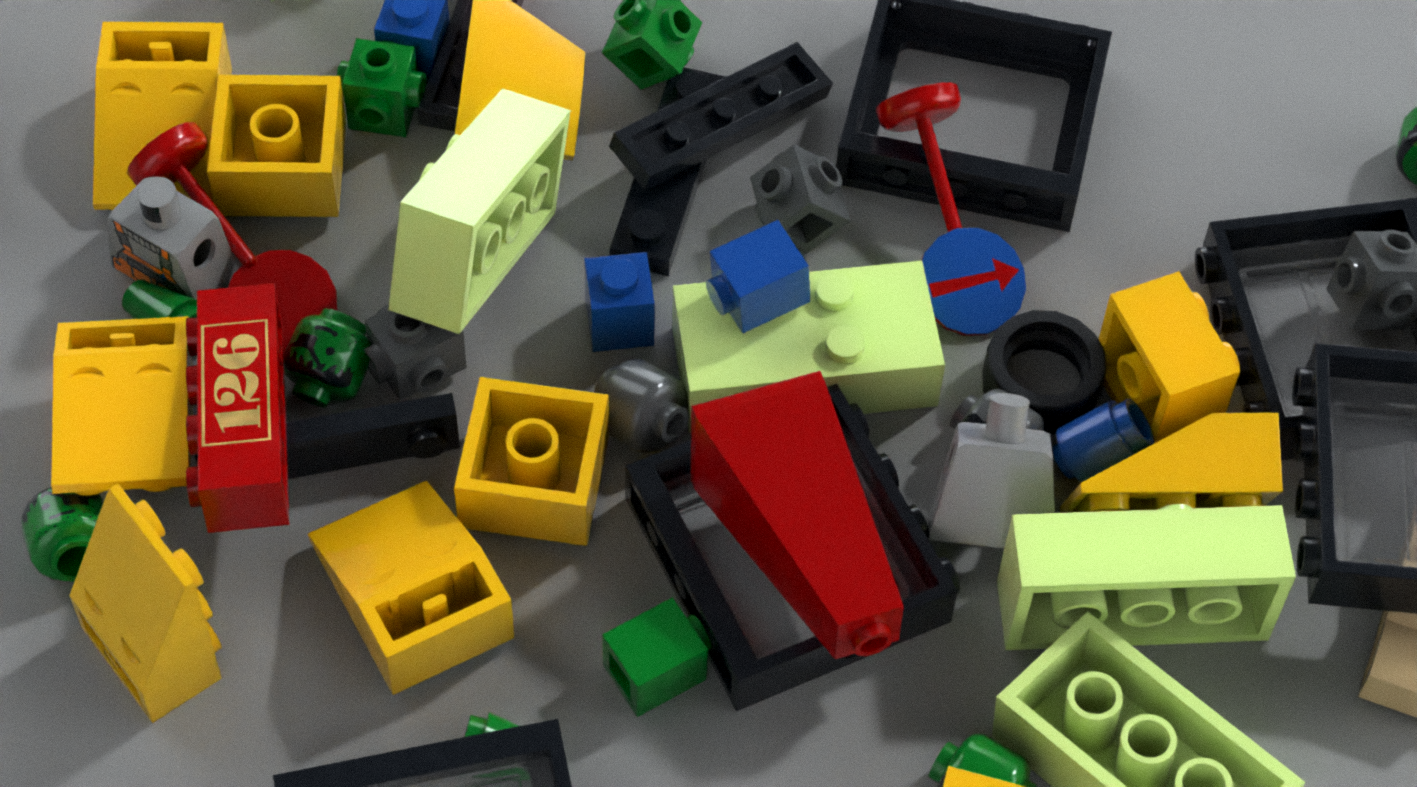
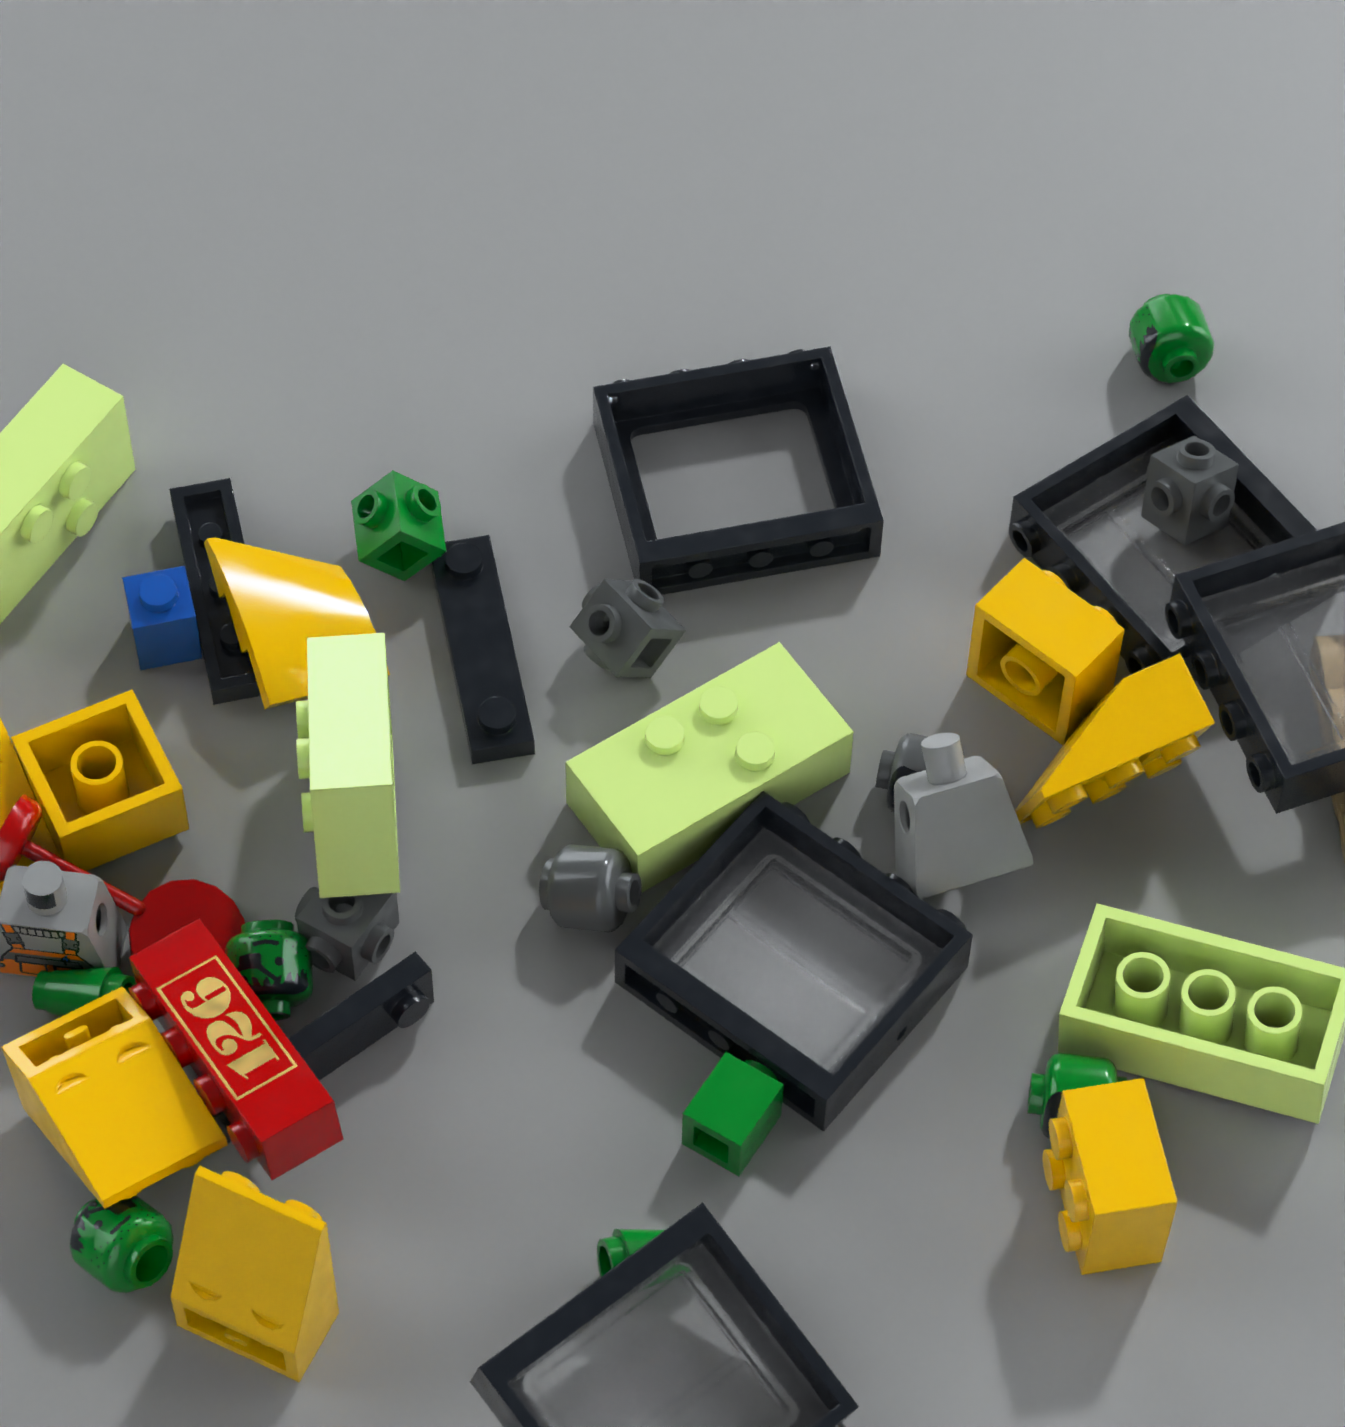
camera: 25 degrees left, 0 degrees up
(381, 87) = (164, 680): green brick -> none
(415, 585) = (476, 1143): yellow slope -> none
(532, 461) = (525, 983): yellow brick -> none
(619, 301) = (514, 798): blue brick -> none
(720, 115) = (507, 577): black plate -> none
(758, 277) = (651, 720): blue brick -> none
(793, 500) = (804, 919): red slope -> none
(968, 271) = (816, 626): piece -> none
(1056, 334) = (930, 660): black tyre -> none
(1101, 439) = (1024, 741): blue brick -> none
(1146, 574) = (1125, 850): yellowish green brick -> none

